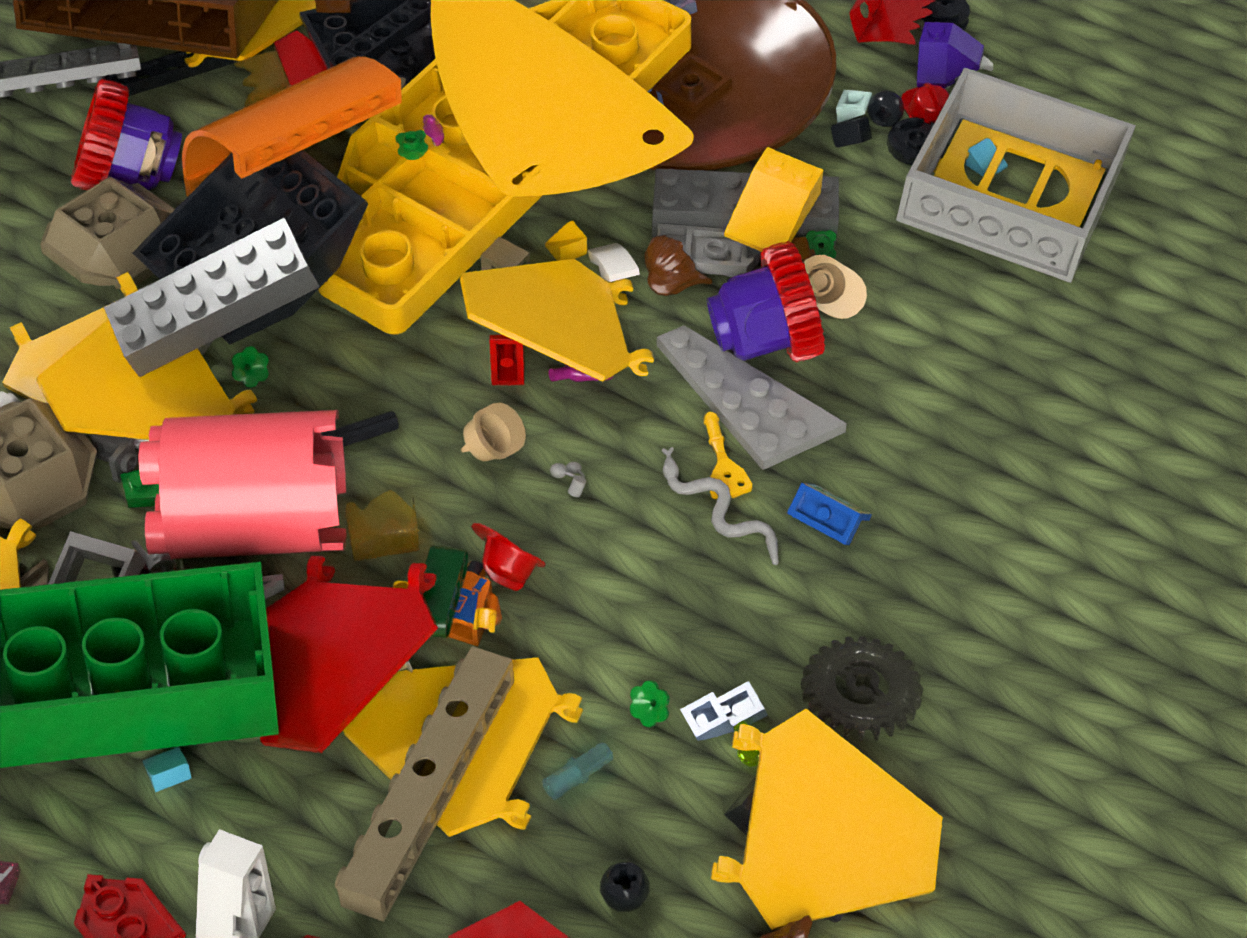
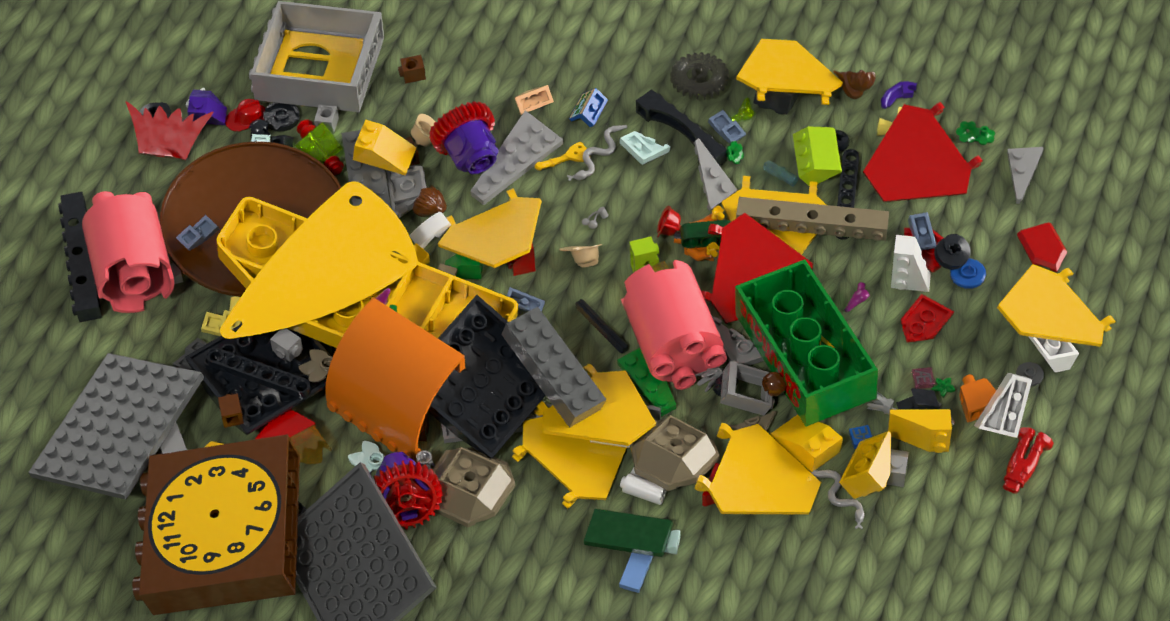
camera: 100 degrees left, 5 degrees up
(170, 184) = (425, 457): none -> light grey piece
(228, 821) = (858, 297): none -> magenta animal
(417, 52) = (286, 344): none -> light grey brick
(426, 352) = (525, 301): none -> sand blue slope
(436, 501) = (643, 252): none -> lime brick
(495, 865) = (848, 179): none -> black beam
(582, 650) = (715, 181): none -> light grey wing
(587, 823) = (816, 154): none -> lime slope
(672, 661) = (655, 108): none -> black arch
(709, 569) = (643, 148): none -> light aqua wing
(845, 162) = (320, 144): none -> clear neon green plate
(871, 438) = (533, 99): none -> light nougat slope
(887, 180) = (327, 114): none -> light grey brick
(978, 294) = (412, 69): none -> reddish brown brick

